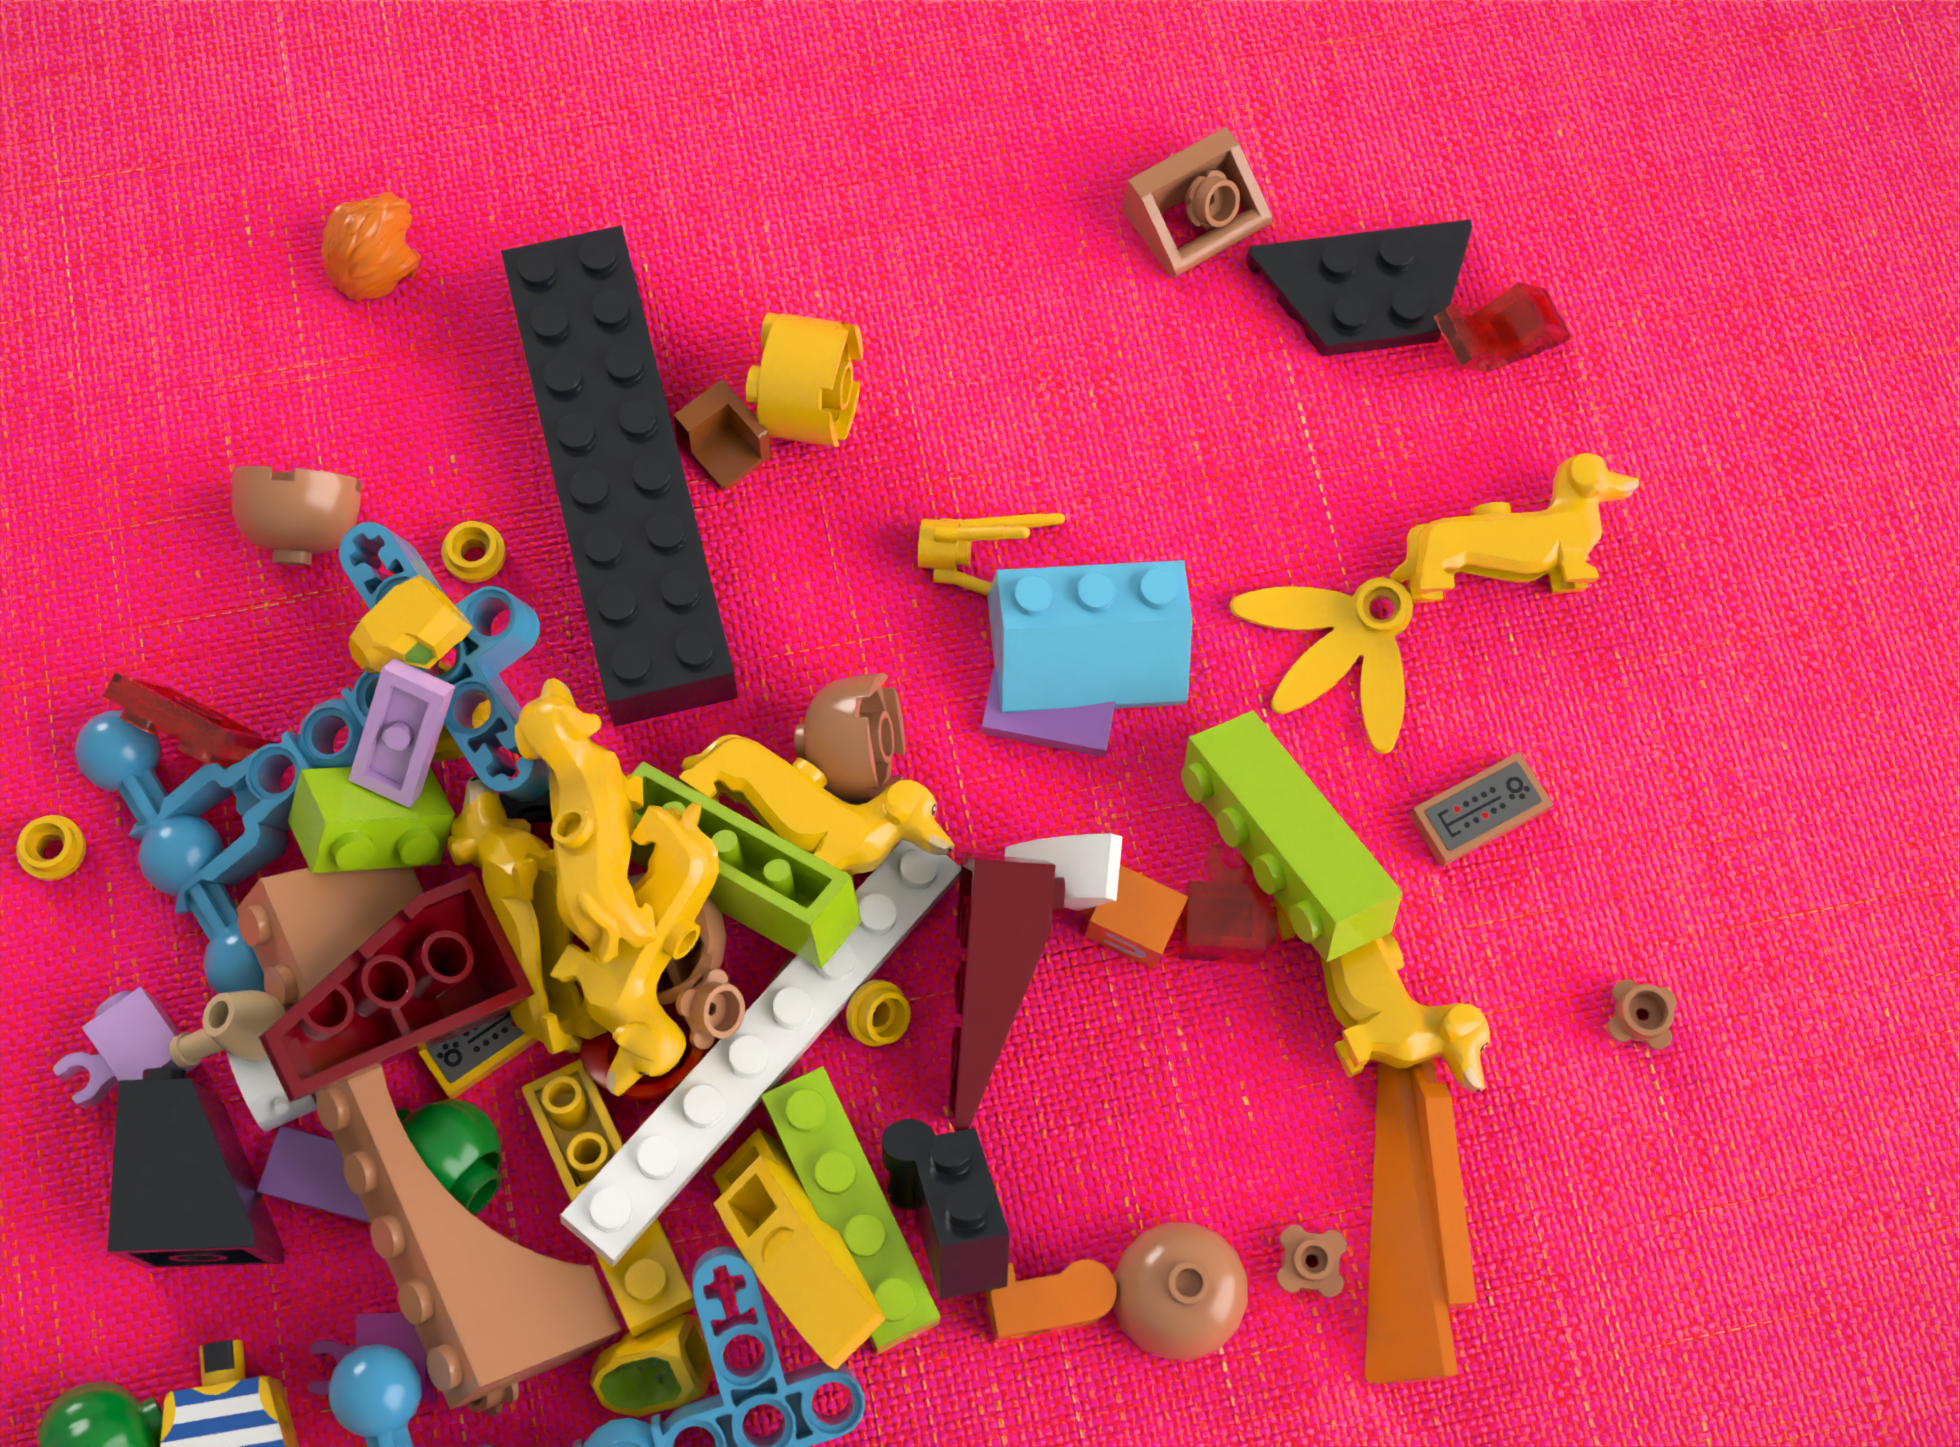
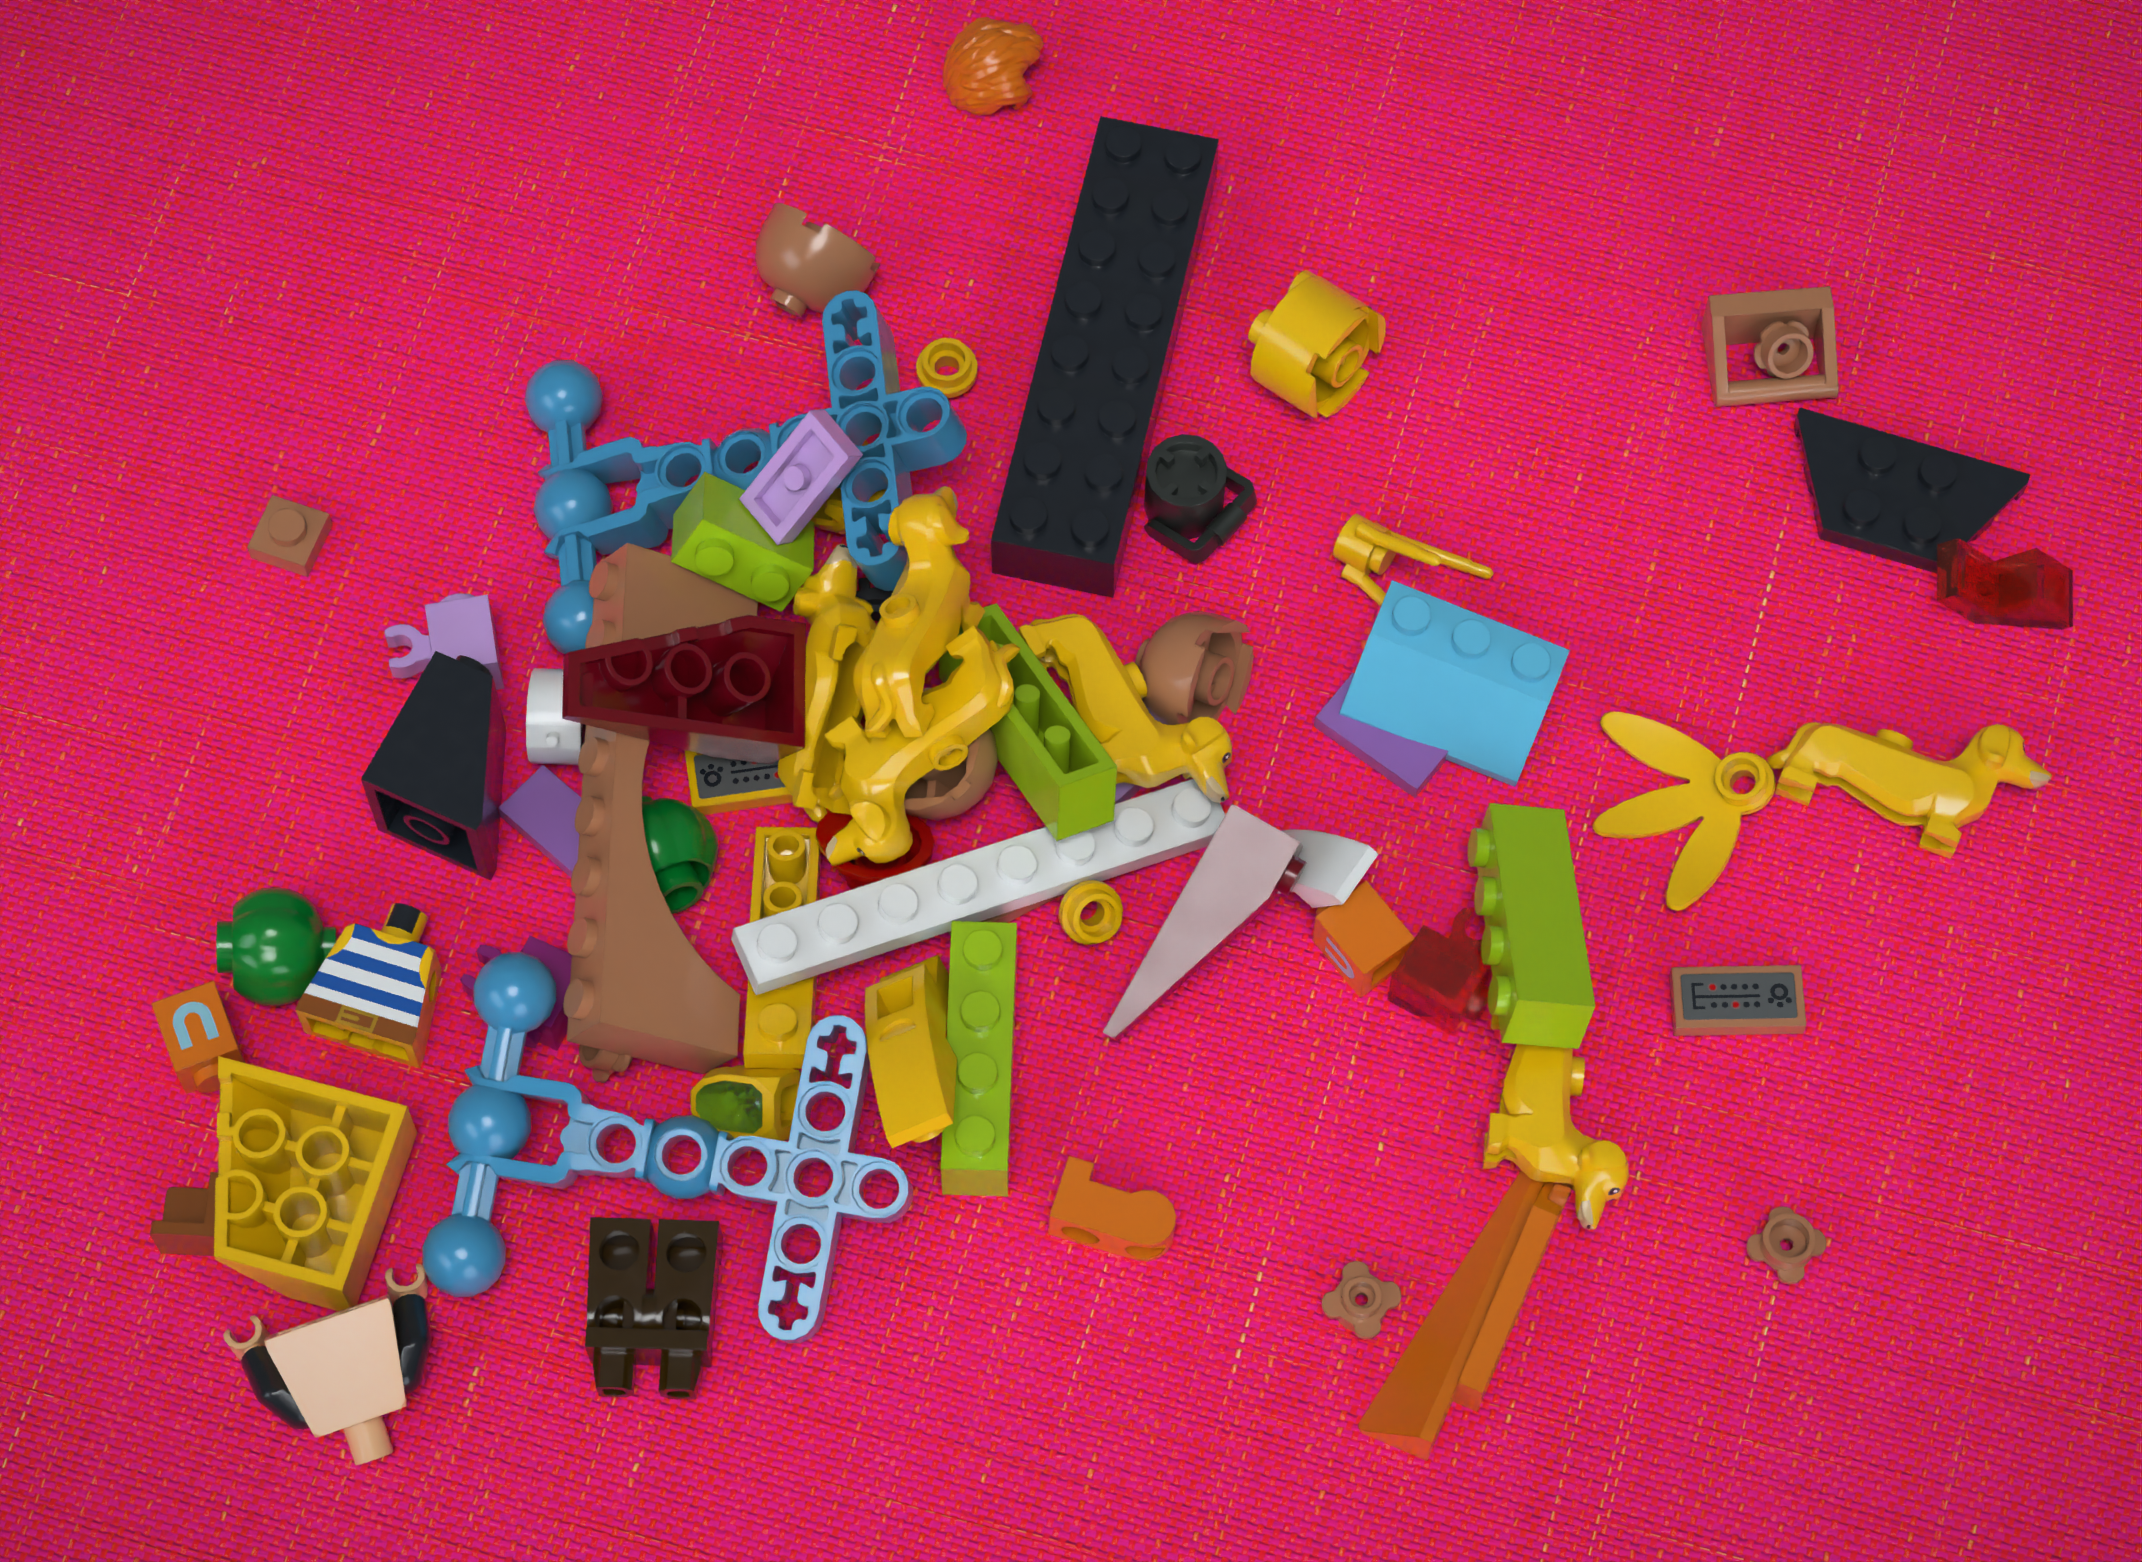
camera: 35 degrees right, 5 degrees down
(42, 832) = (468, 439): yellow plate -> none
(201, 729) = (626, 391): clear red plate -> none
(229, 1024) = (542, 653): tan bar -> none
(408, 624) = (852, 388): yellow rock -> none
(711, 1009) = (960, 833): nougat plate -> none
(722, 435) = (1216, 364): dark orange panel -> none
(758, 571) = (1187, 497): none -> pearl dark grey piece
(953, 1204) = (1069, 1072): black hinge -> none
(1180, 1291) = (1231, 1267): nougat cylinder -> none

